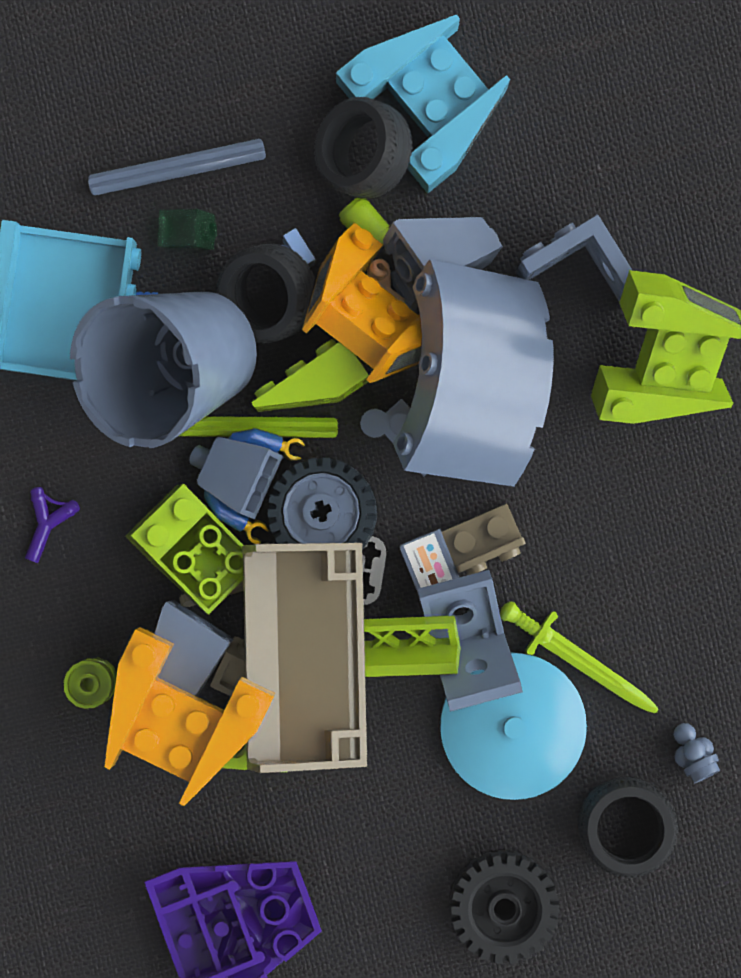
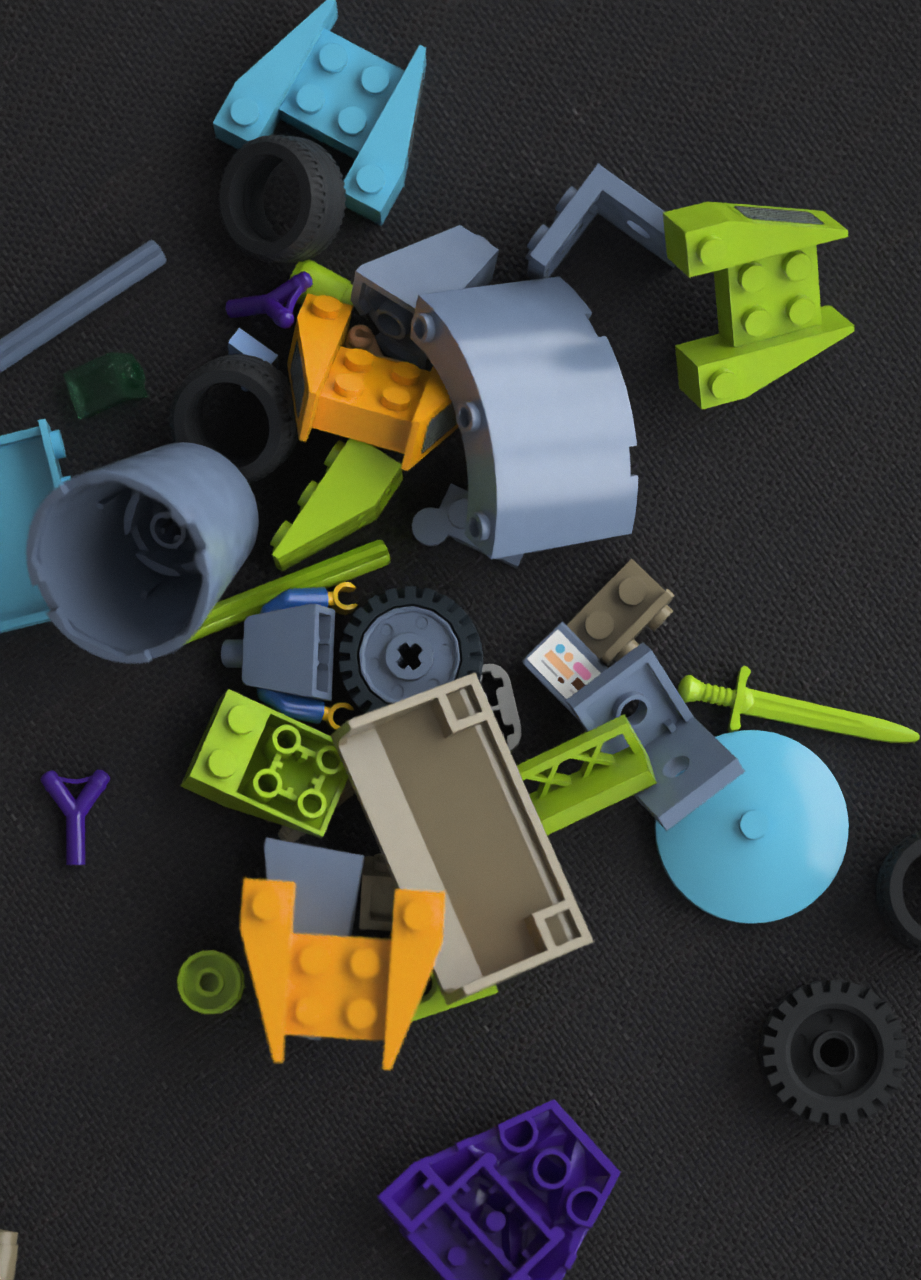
camera: 25 degrees left, 5 degrees down
(327, 219) = (273, 301): none -> dark purple piece

